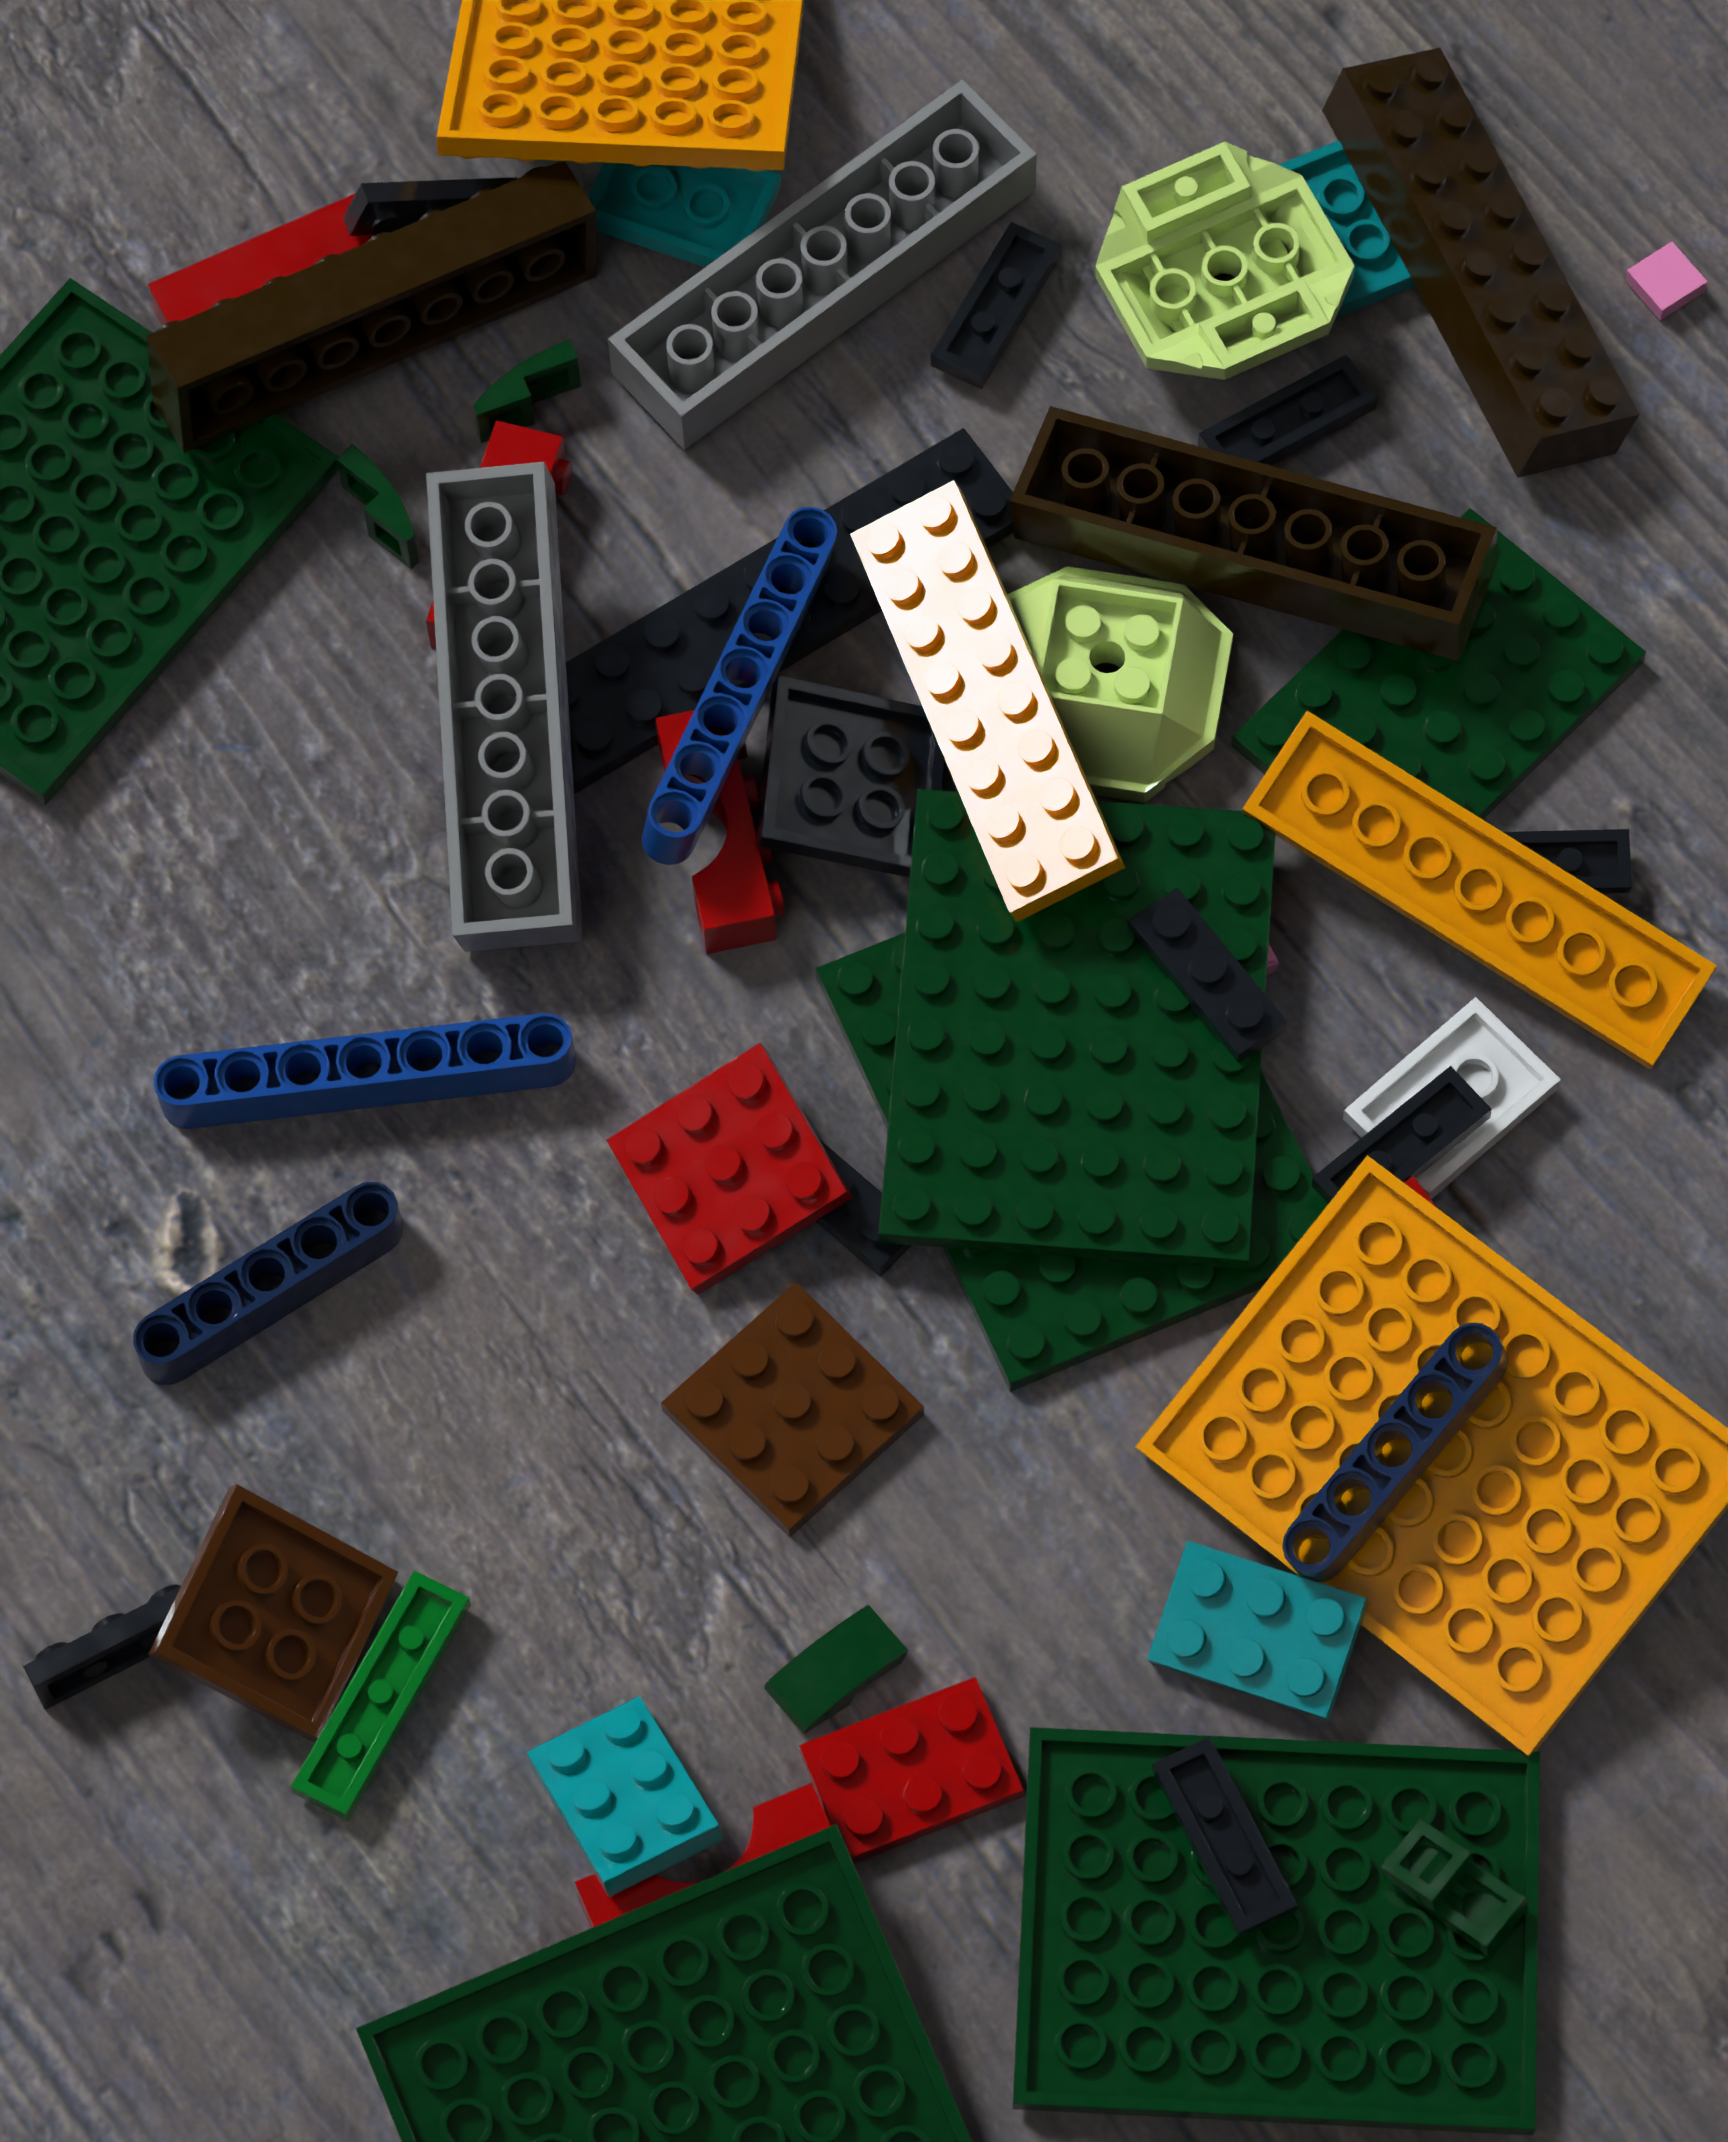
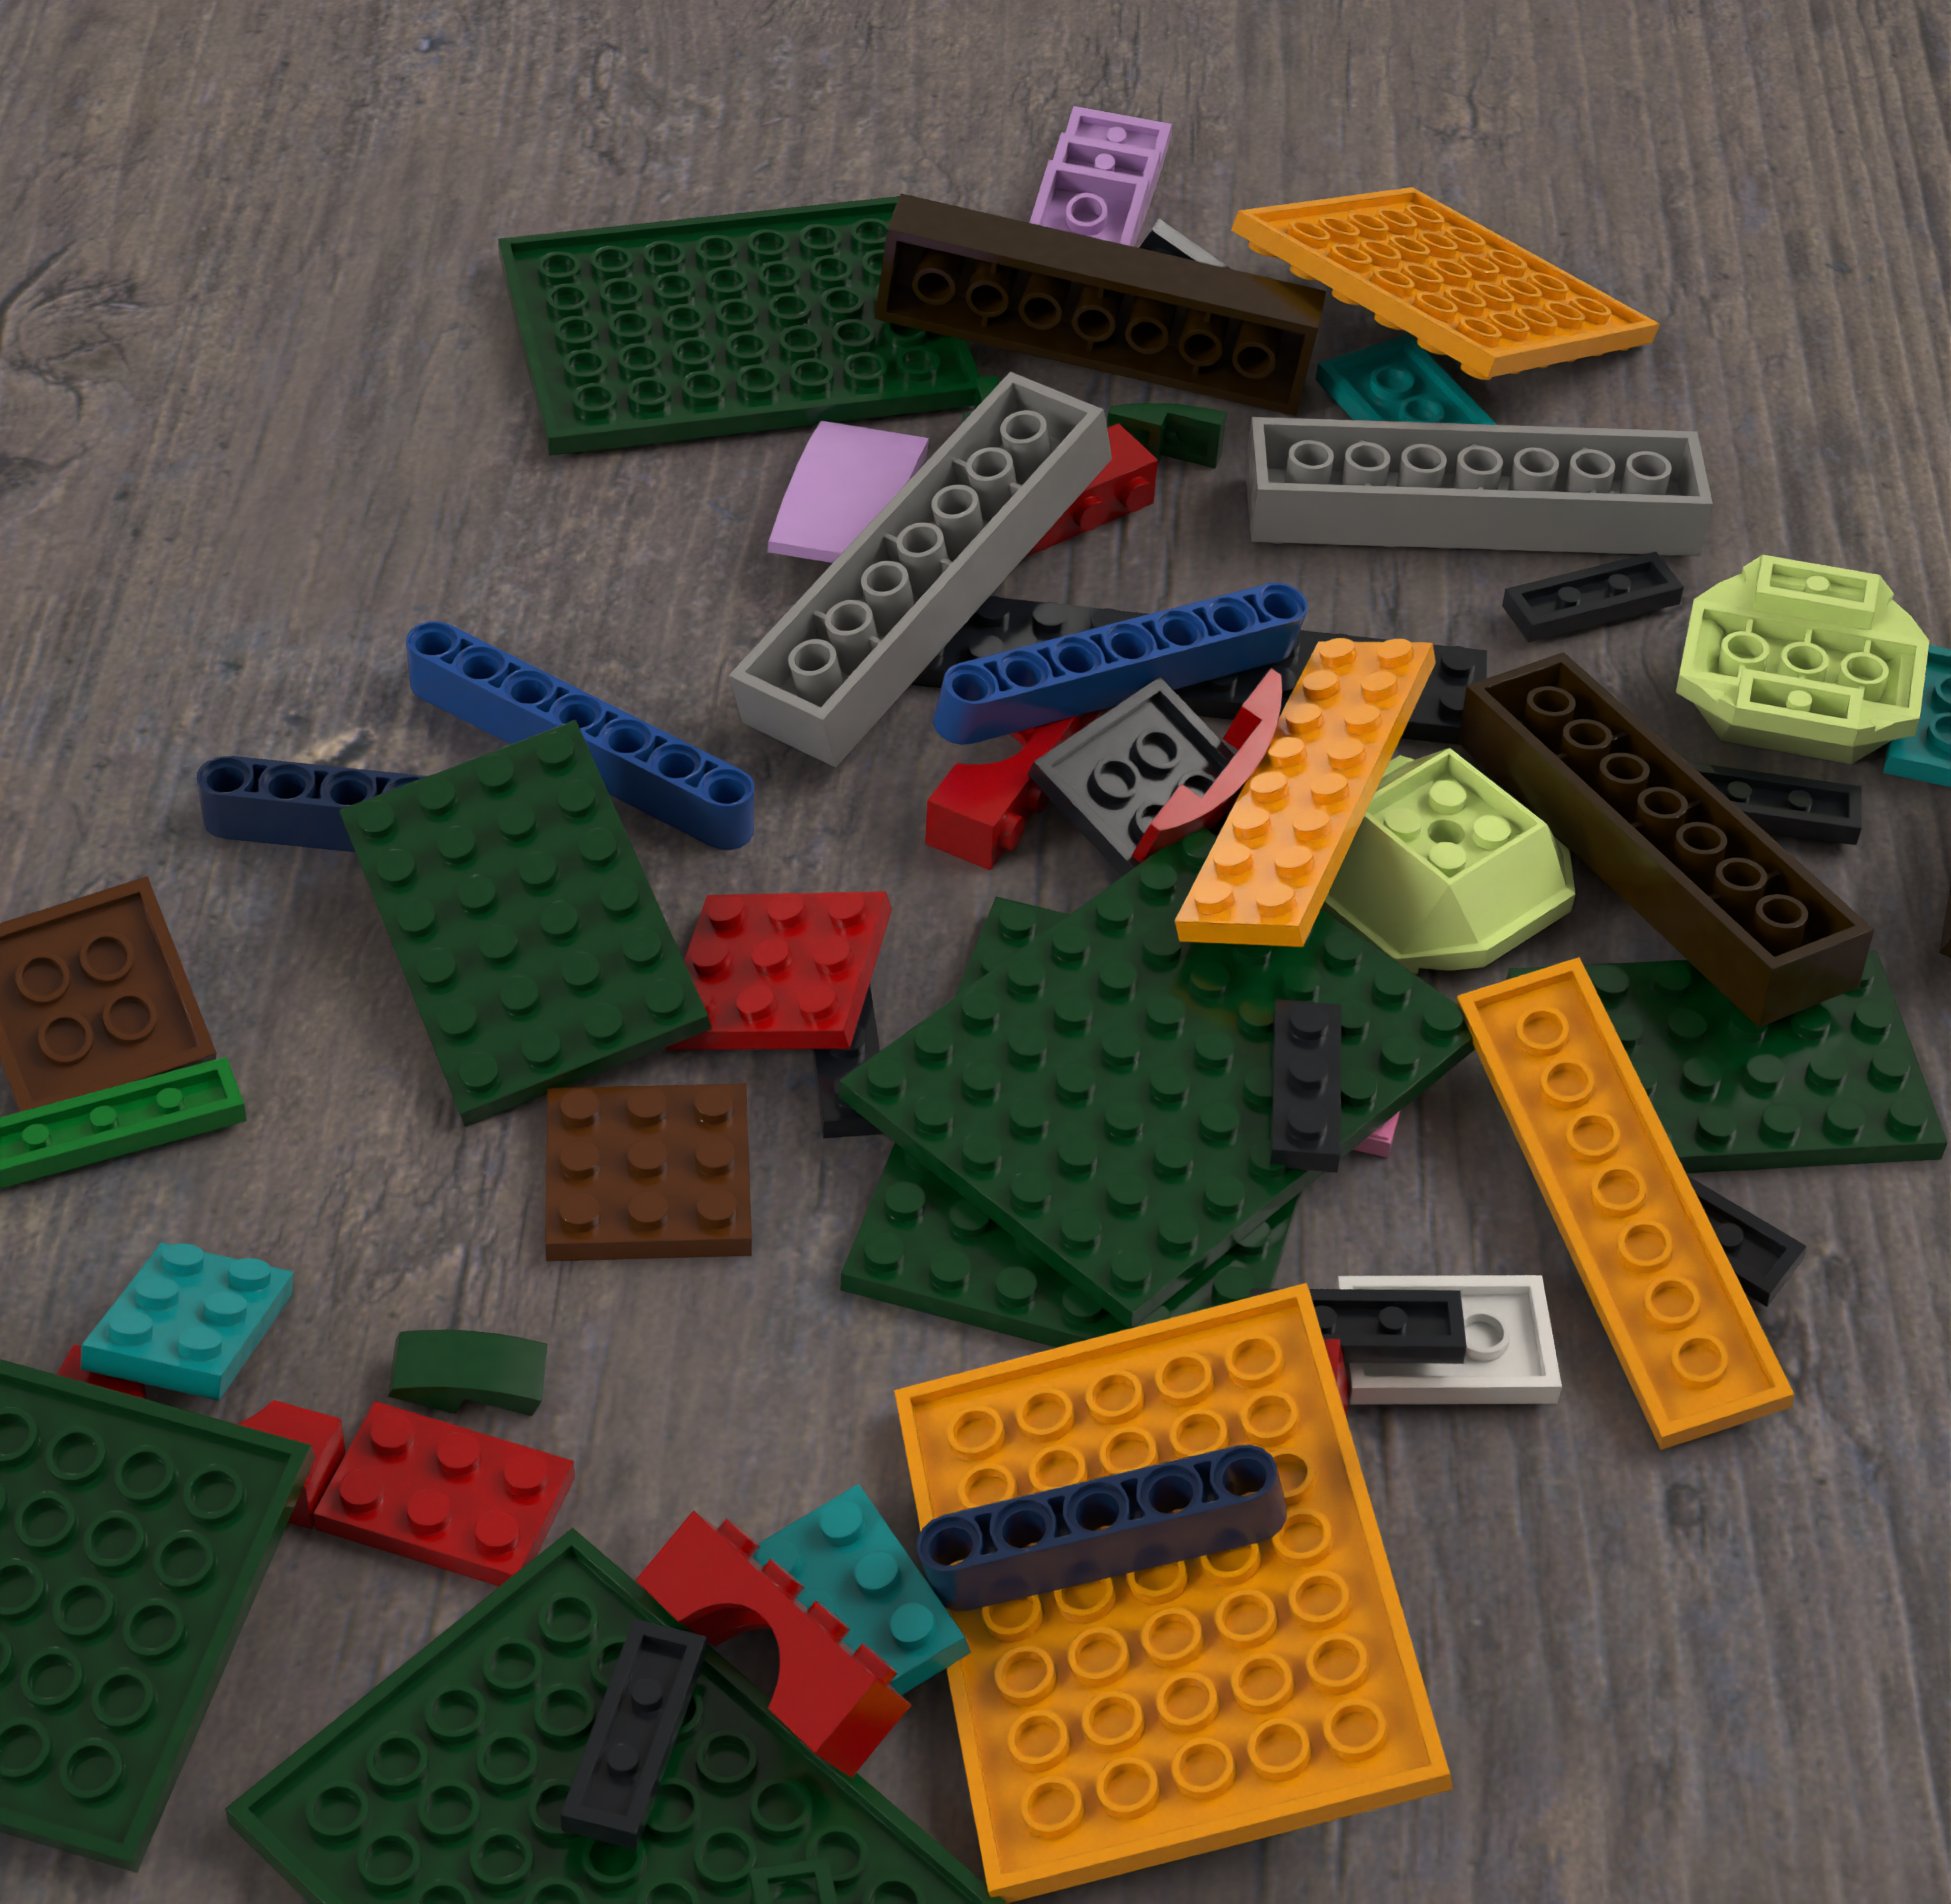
camera: 35 degrees right, 20 degrees down
(210, 137) = (1102, 175): none -> lavender slope
(339, 660) = (842, 487): none -> lavender slope
(515, 1281) = (523, 922): none -> dark green plate
(891, 667) = (1248, 733): none -> slope
(1329, 1710) = (824, 1689): none -> red arch

